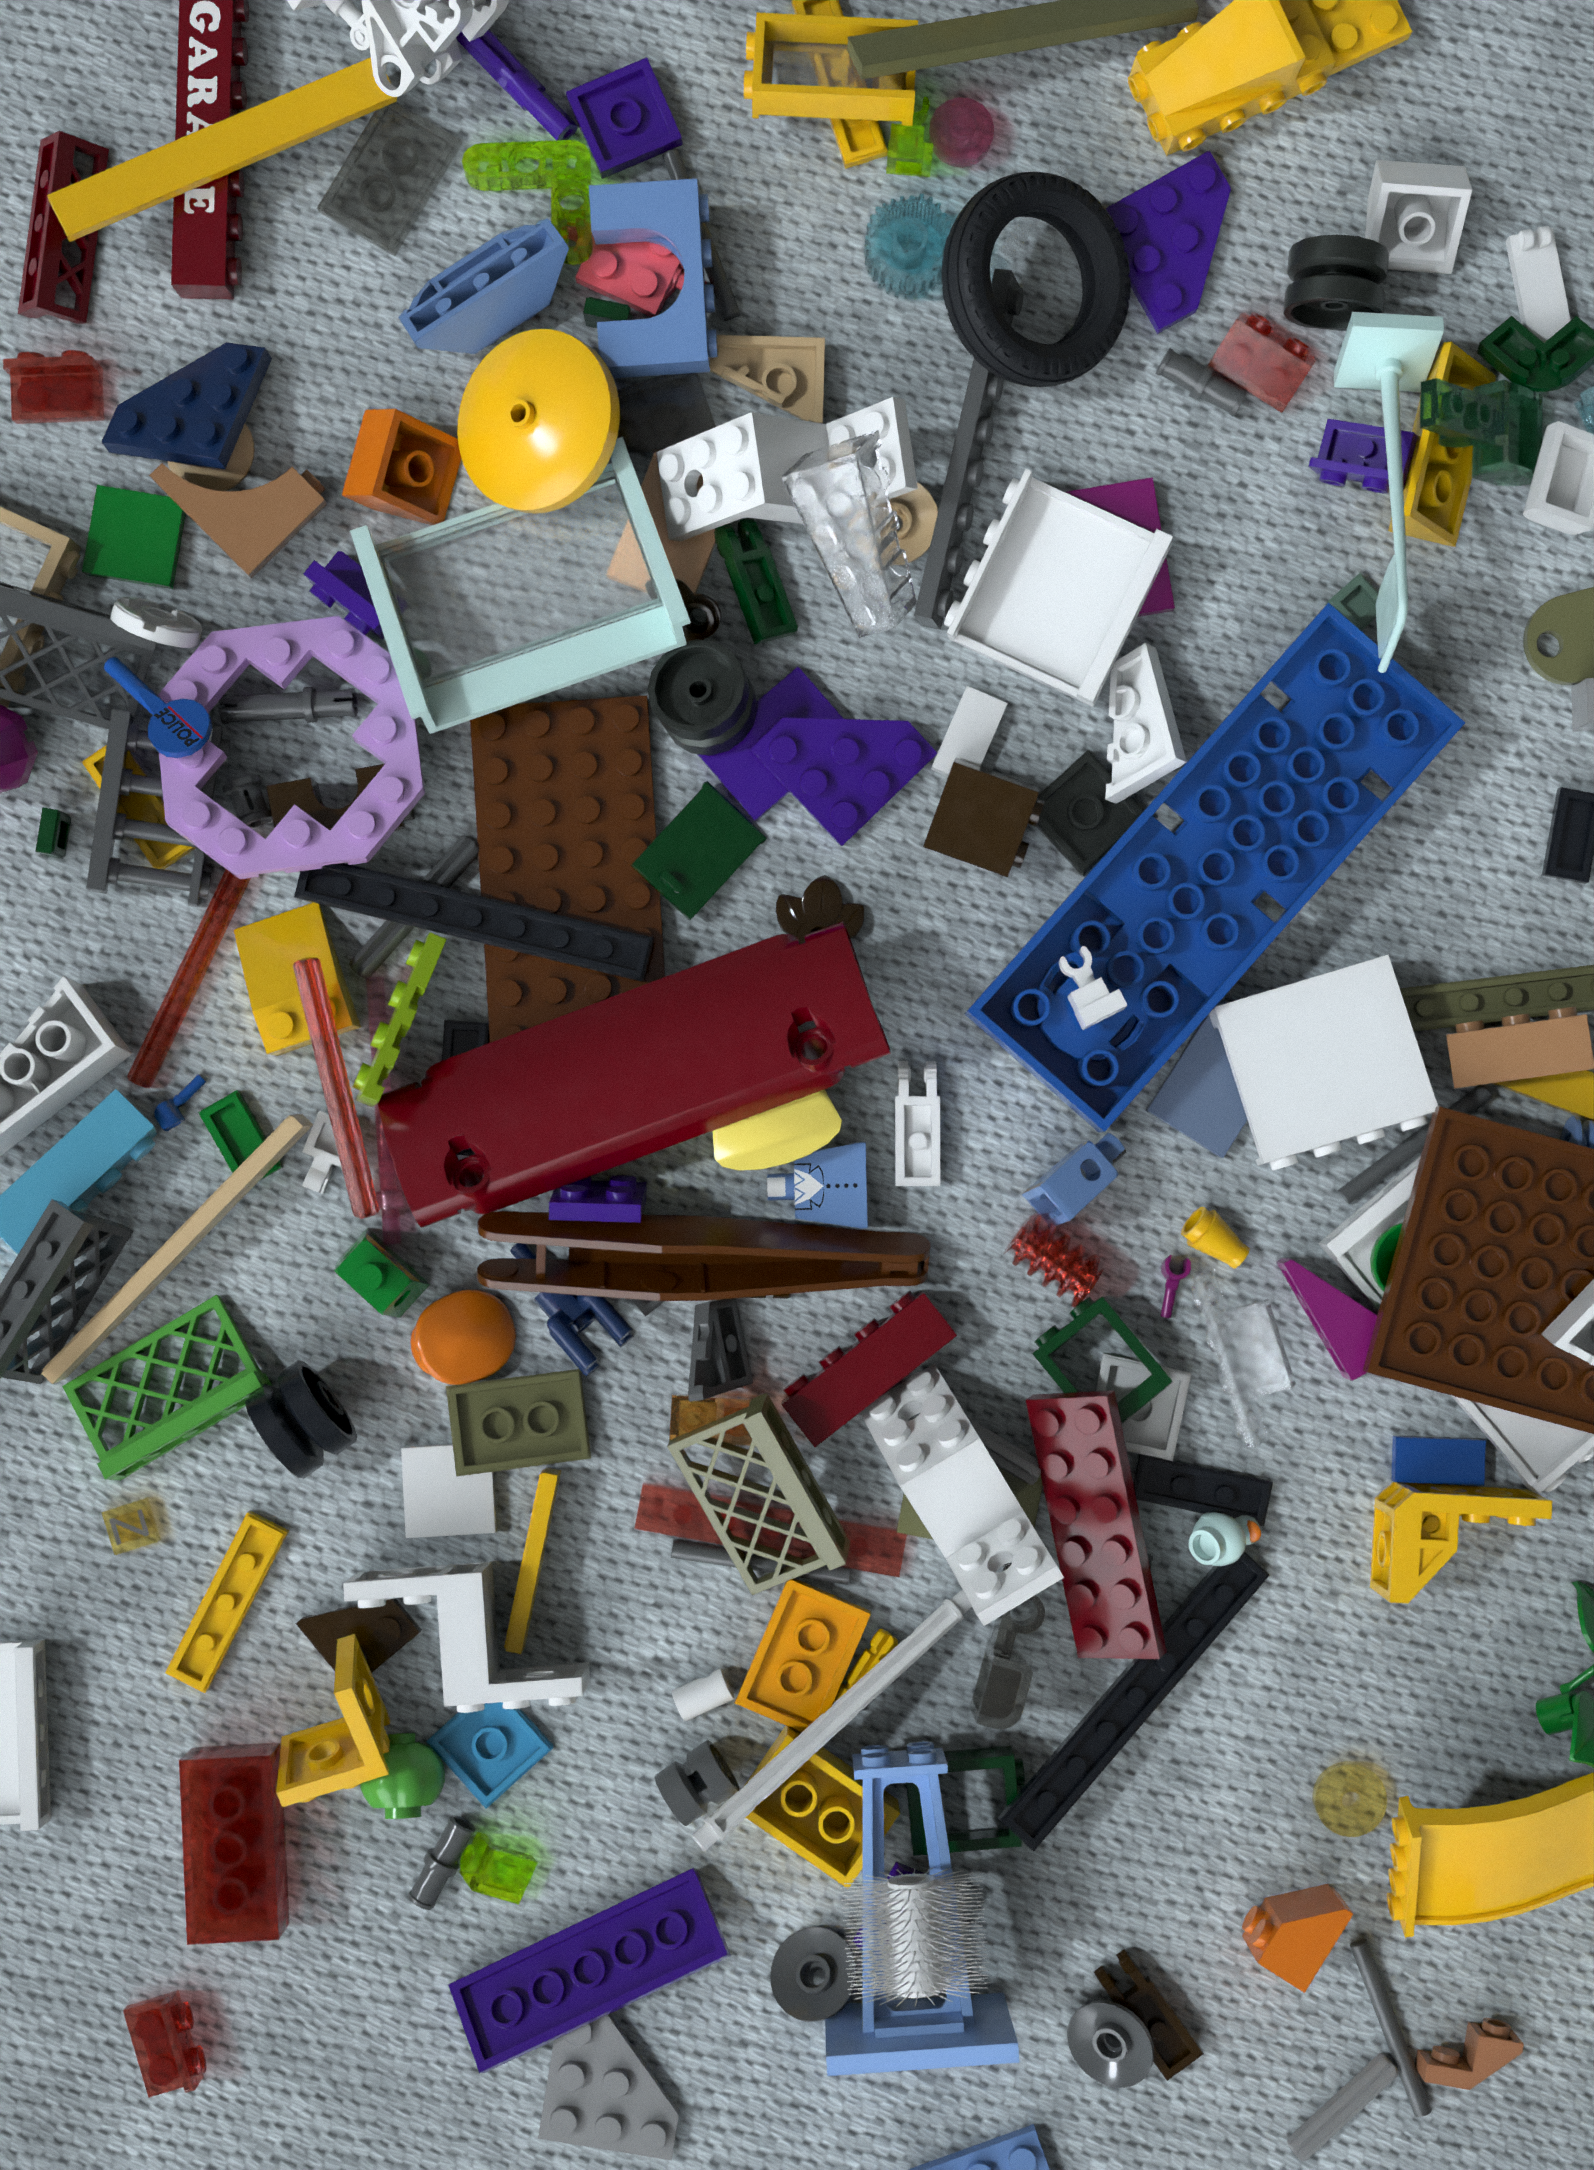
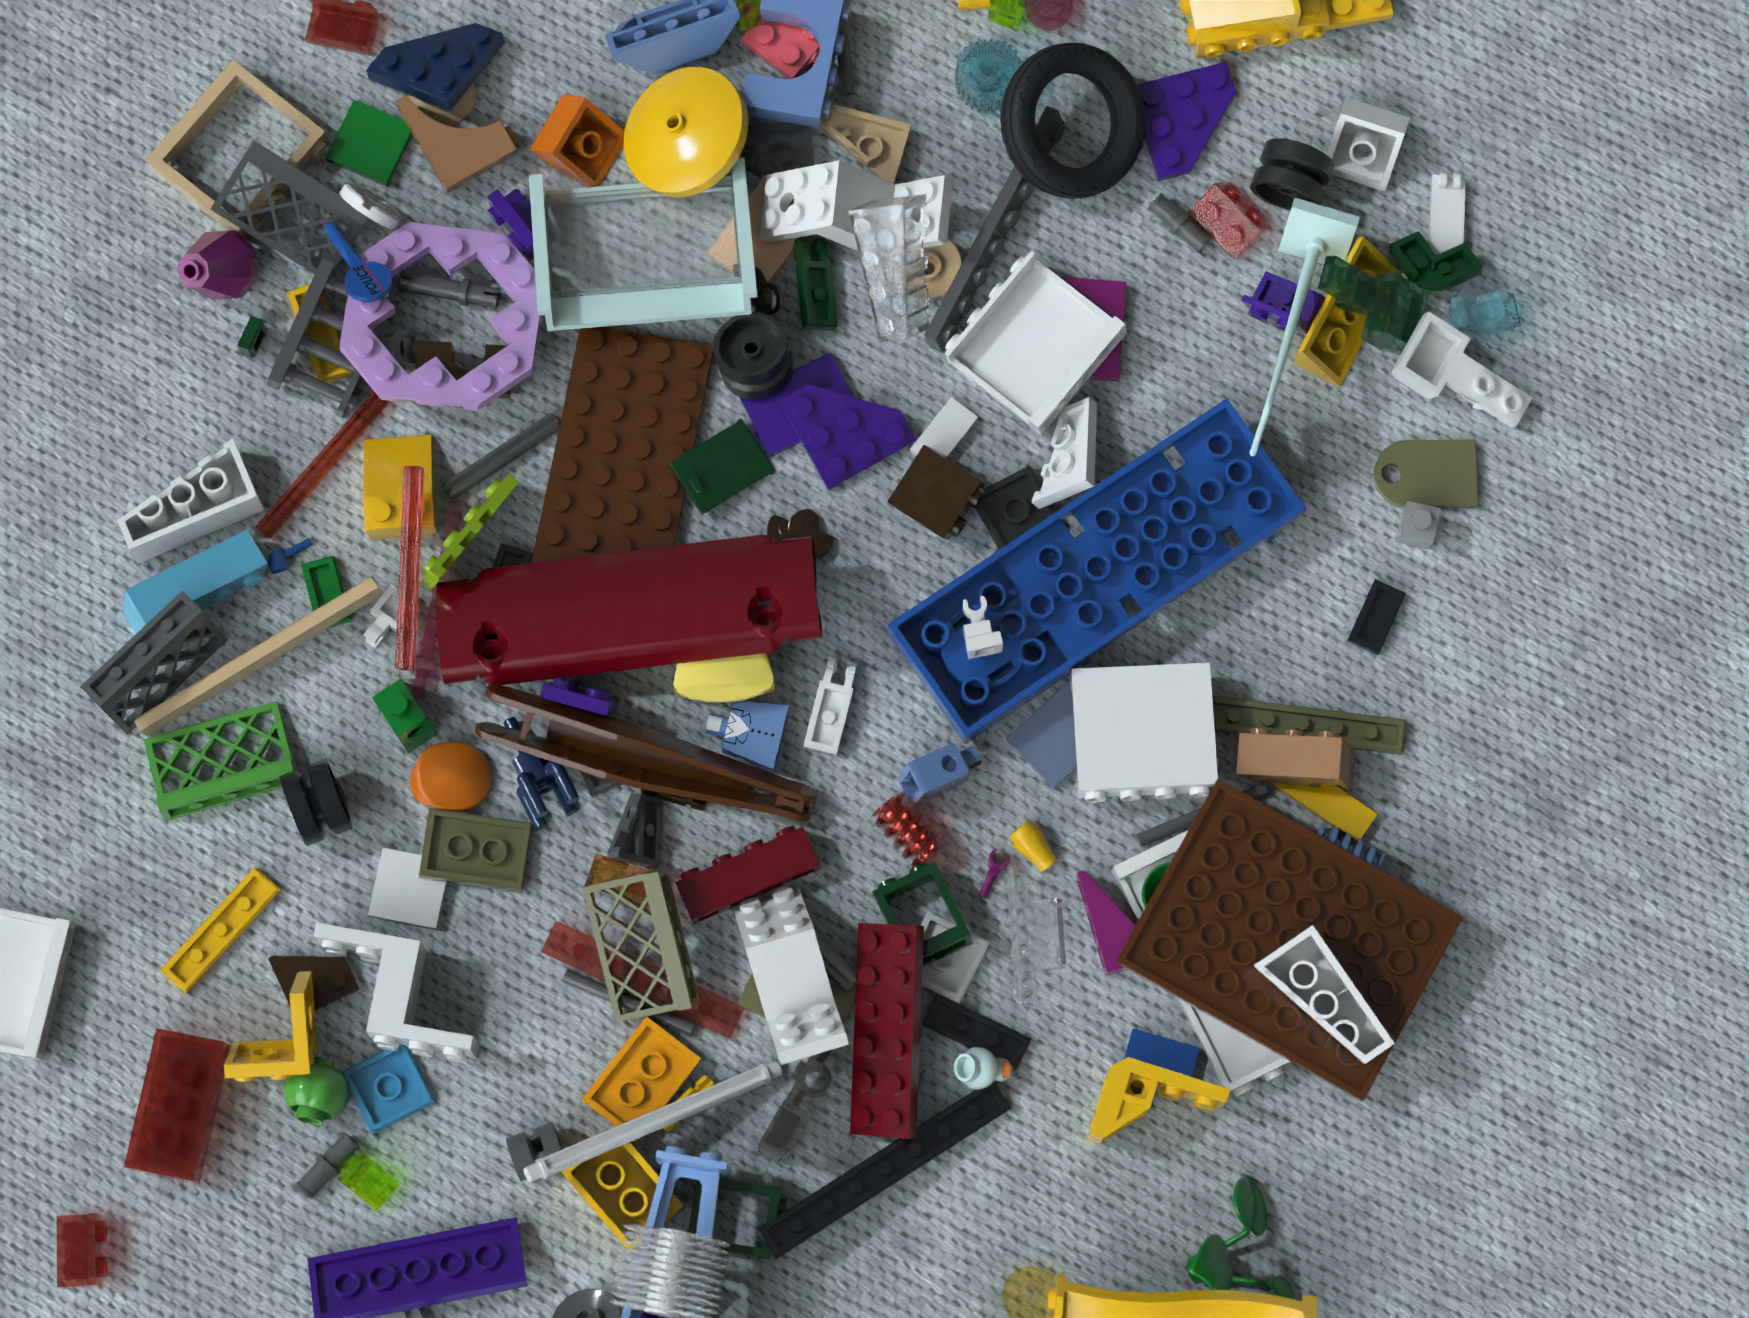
camera: 15 degrees right, 10 degrees down
(131, 1526) = (165, 855): clear yellow tile -> none
(477, 919) = (545, 473): black tile -> none
(532, 1560) = (458, 954): yellow tile -> none
(602, 310) = (754, 66): dark green tile -> none
(702, 1695) = (558, 1089): white piece -> none
(1356, 601) = (1251, 409): sand green tile -> none

